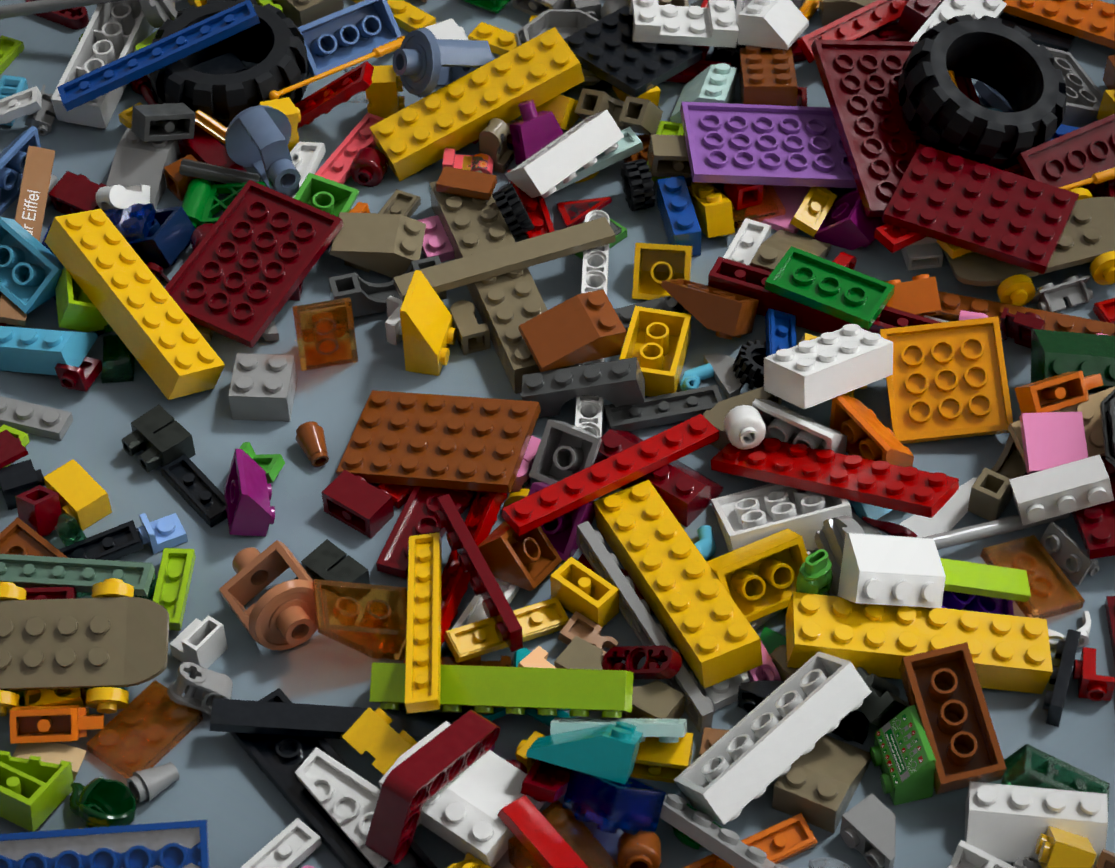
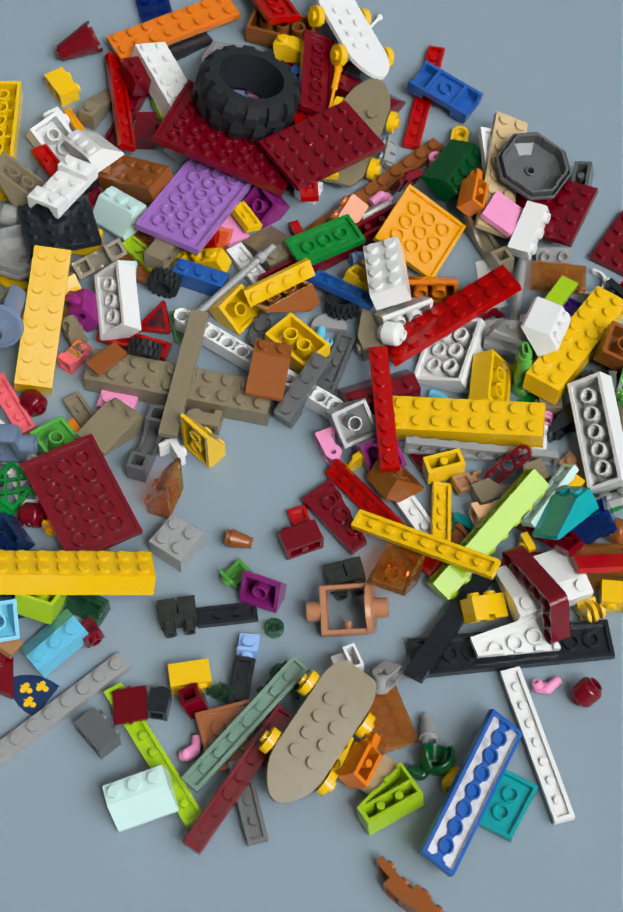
camera: 60 degrees left, 10 degrees up
(174, 583) = (283, 651): lime plate -> none
(209, 545) = (274, 628): none -> clear green tile
(440, 441) = (286, 477): dark orange plate -> none
(481, 579) = (405, 503): dark red plate -> none
(723, 276) = (278, 282): none -> yellow plate
(747, 243) = (259, 258): none -> light grey bar

